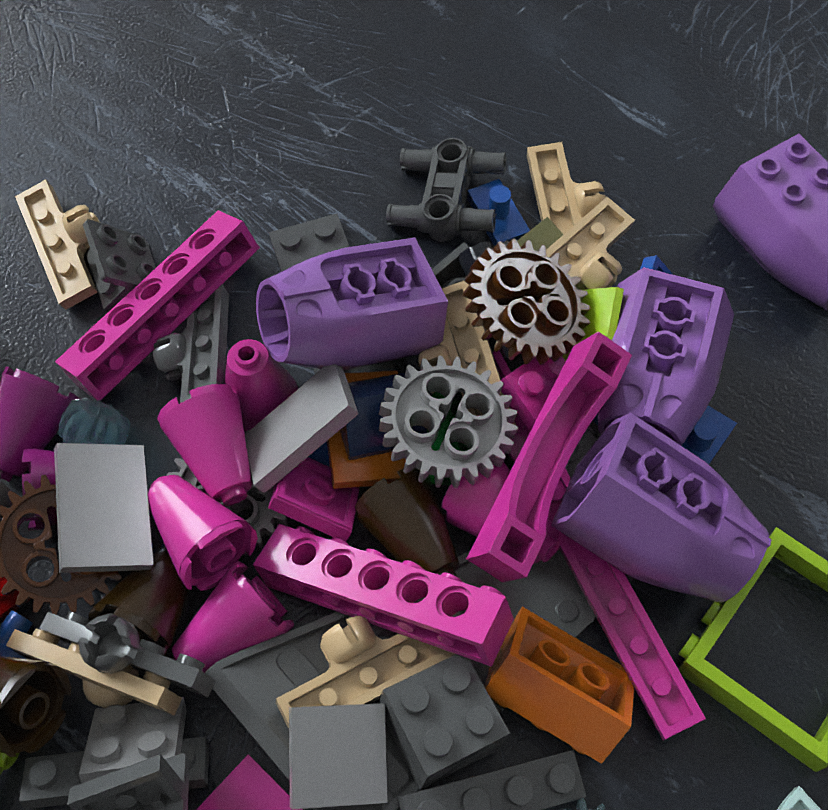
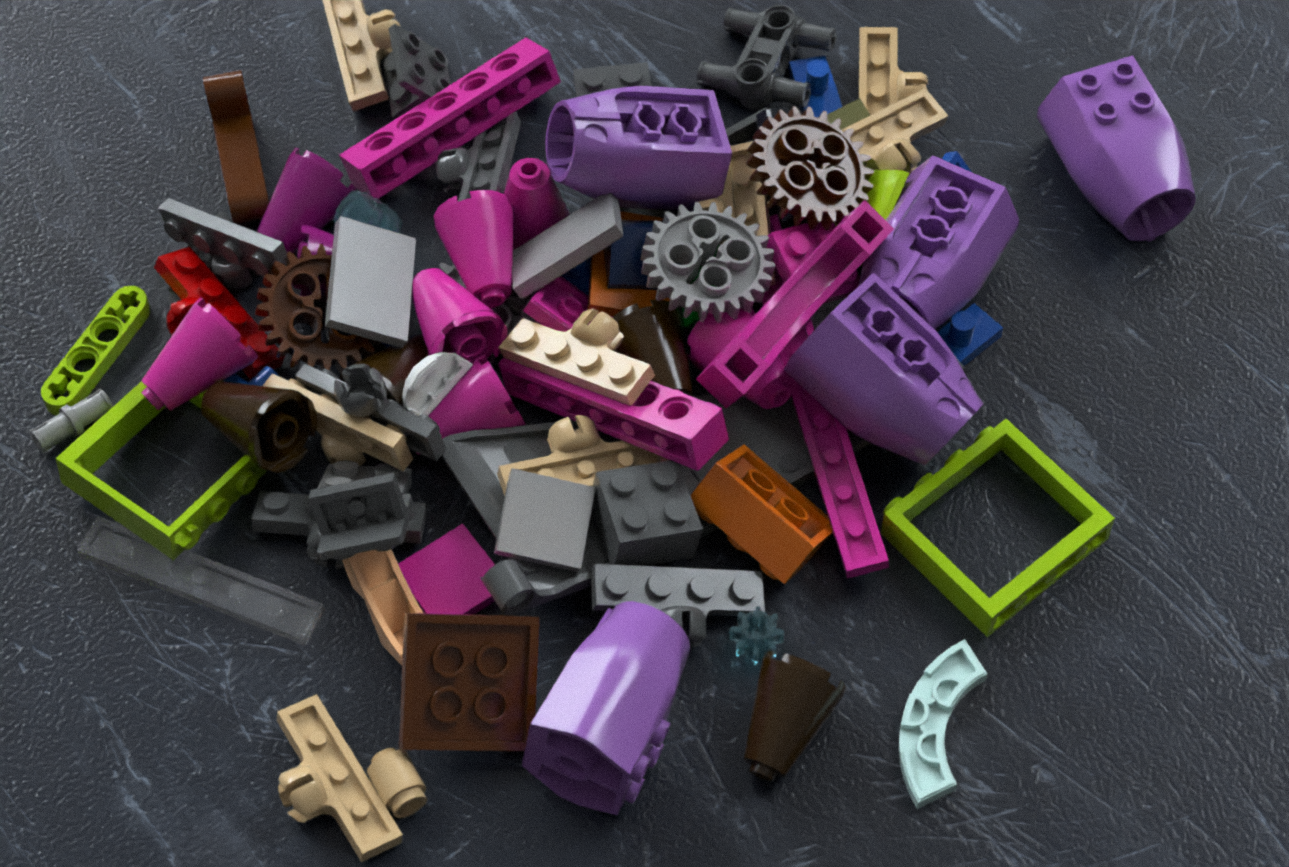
camera: 10 degrees right, 5 degrees down
(186, 608) = (432, 381): none -> white plate
(340, 551) = (581, 355): none -> tan plate

